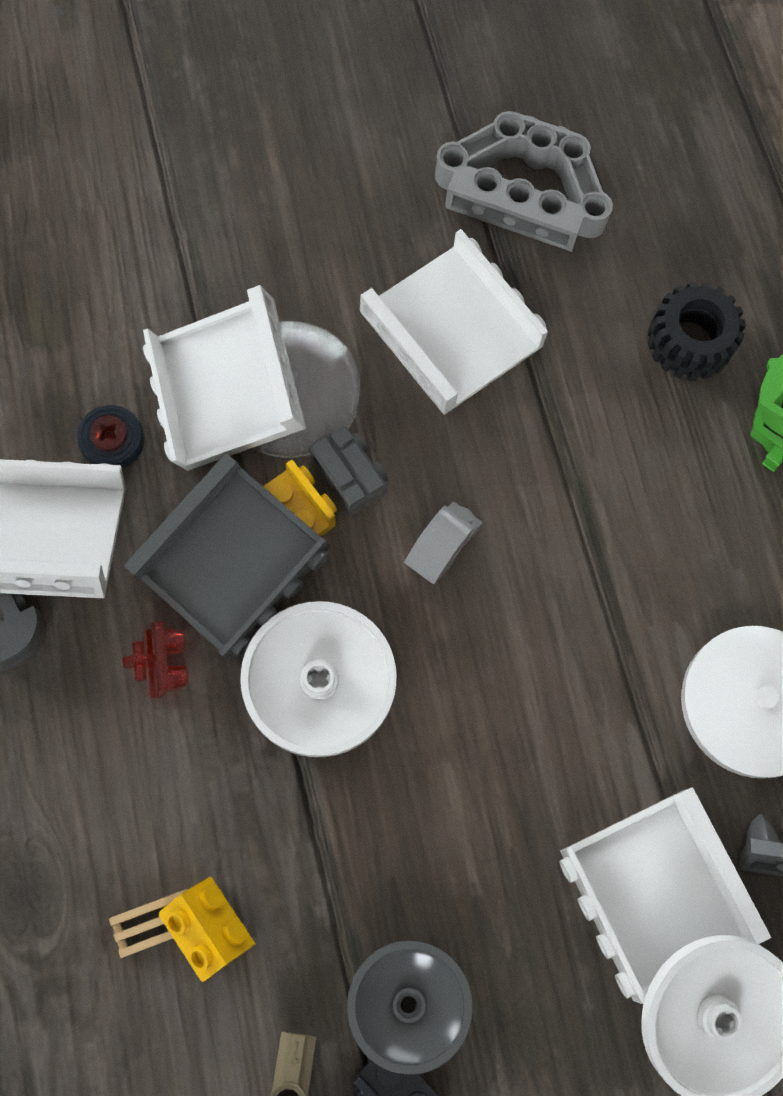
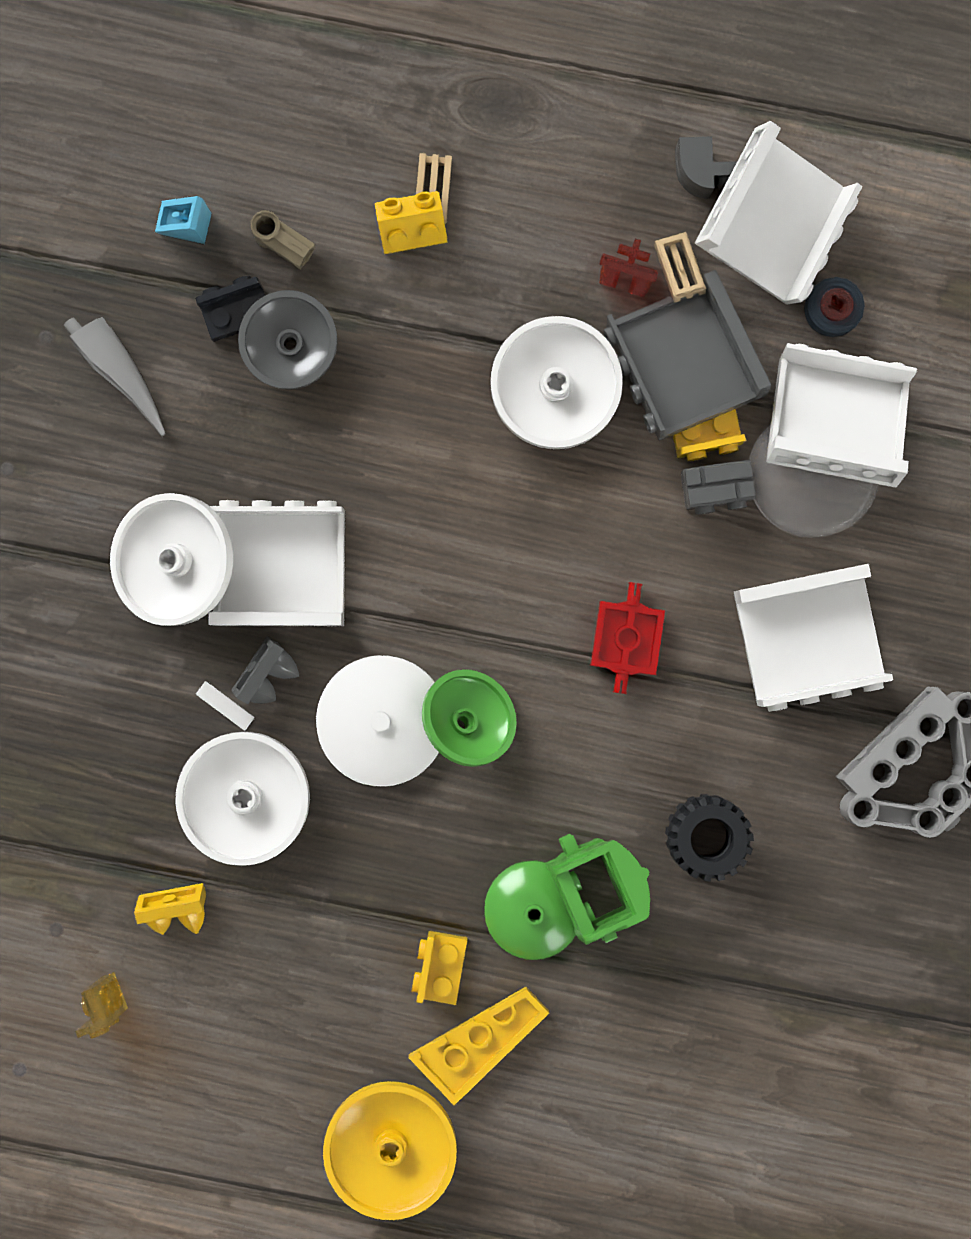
camera: 120 degrees right, 15 degrees up
(156, 606) = (687, 290): none -> tan tile
(442, 541) = (623, 533): light grey brick -> none
(545, 491) = (627, 638): none -> red plate
(704, 589) = (482, 708): none -> bright green dish

